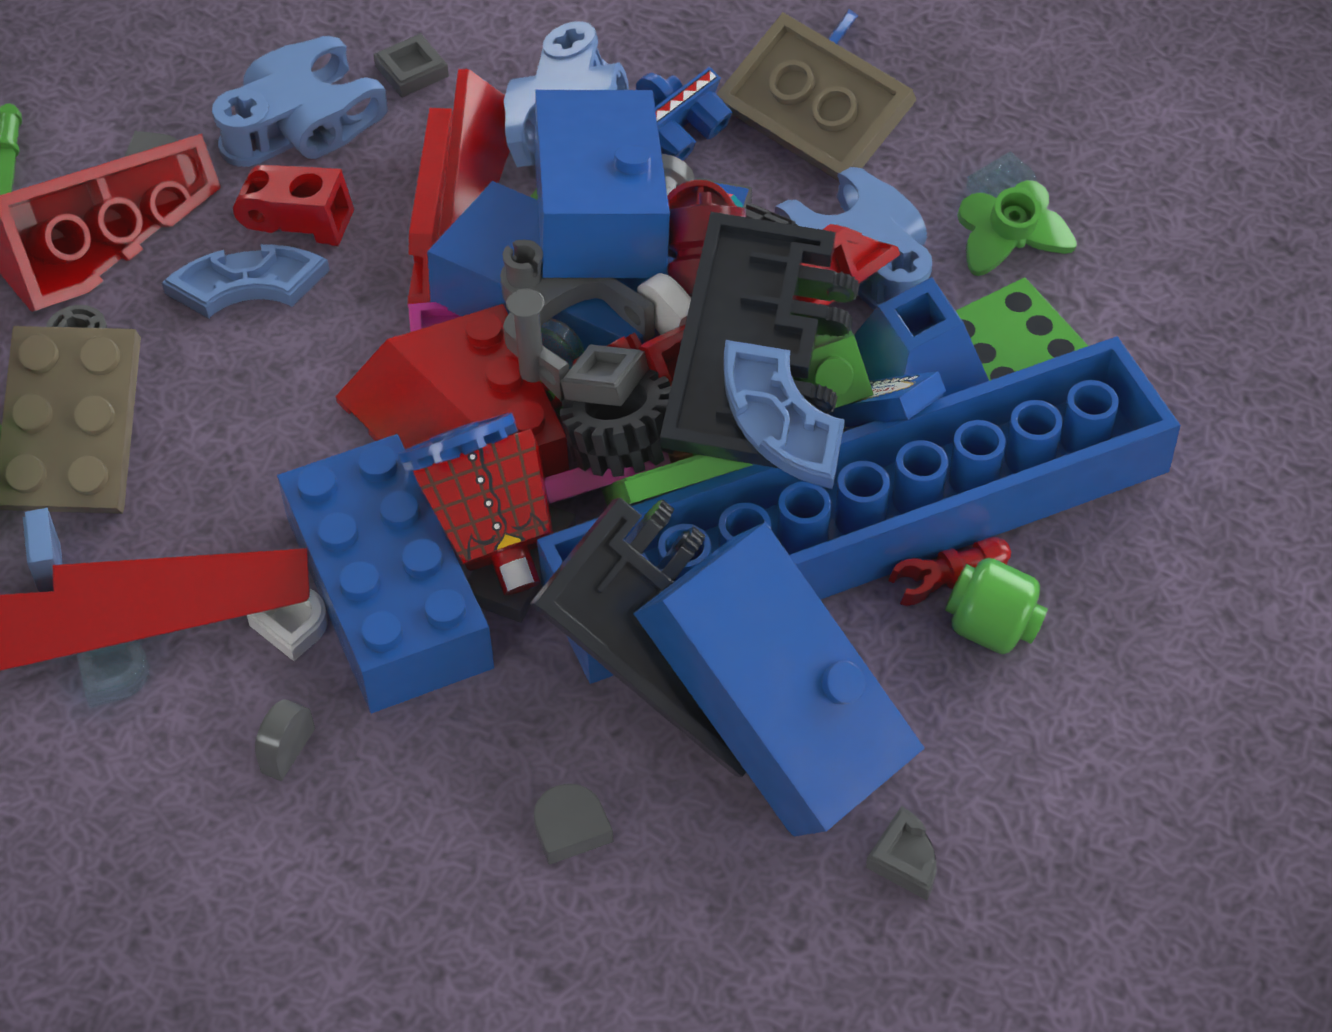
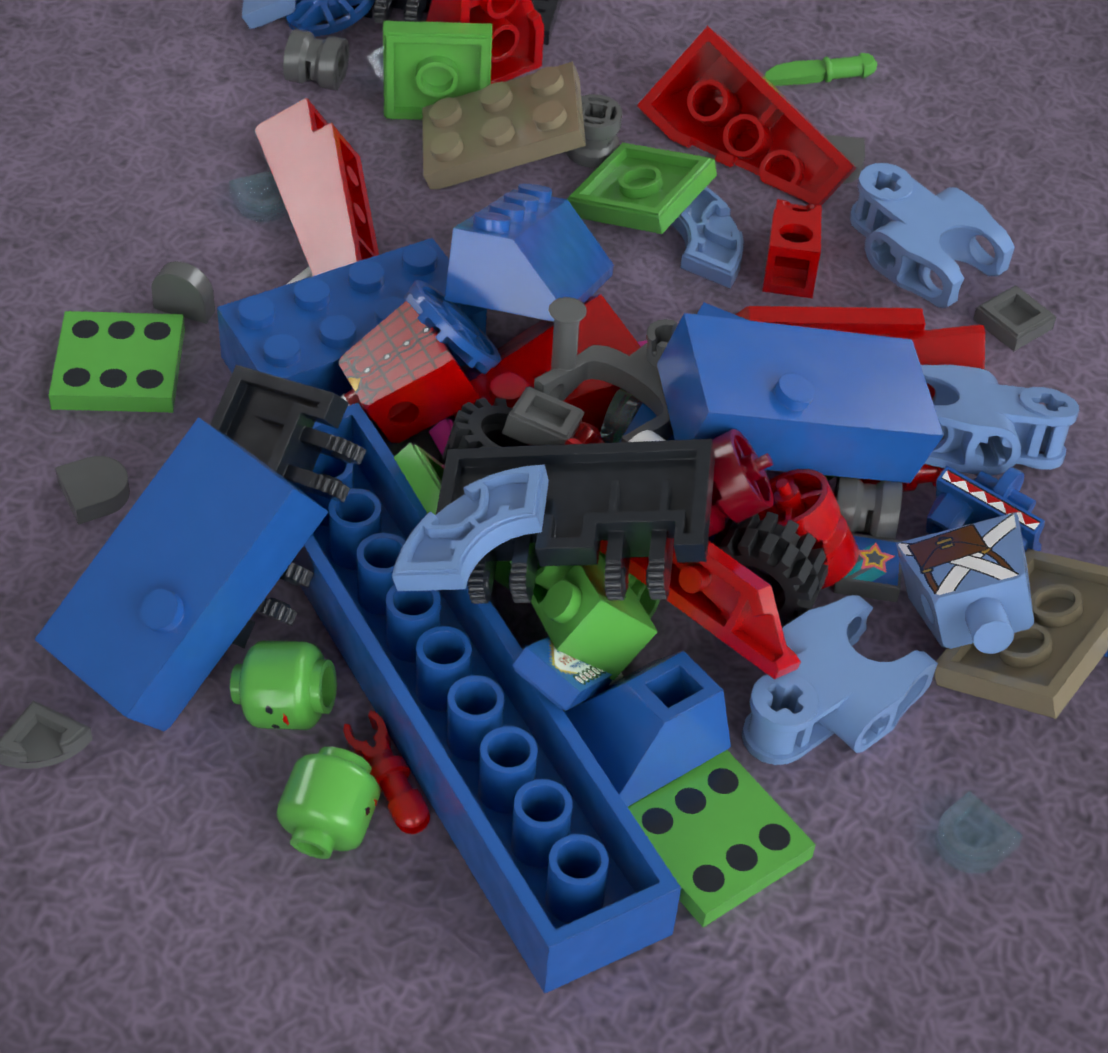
camera: 80 degrees right, 5 degrees down
(42, 547) = (371, 133): medium blue tile -> none
(184, 314) = (642, 187): none -> bright green tile
(336, 395) = (525, 255): none -> blue slope
(375, 807) = (117, 362): none -> bright green tile
(777, 125) = (970, 583): none -> medium blue torso
(871, 627) = (284, 685): none -> bright green head
(1011, 221) = (902, 837): bright green animal -> none

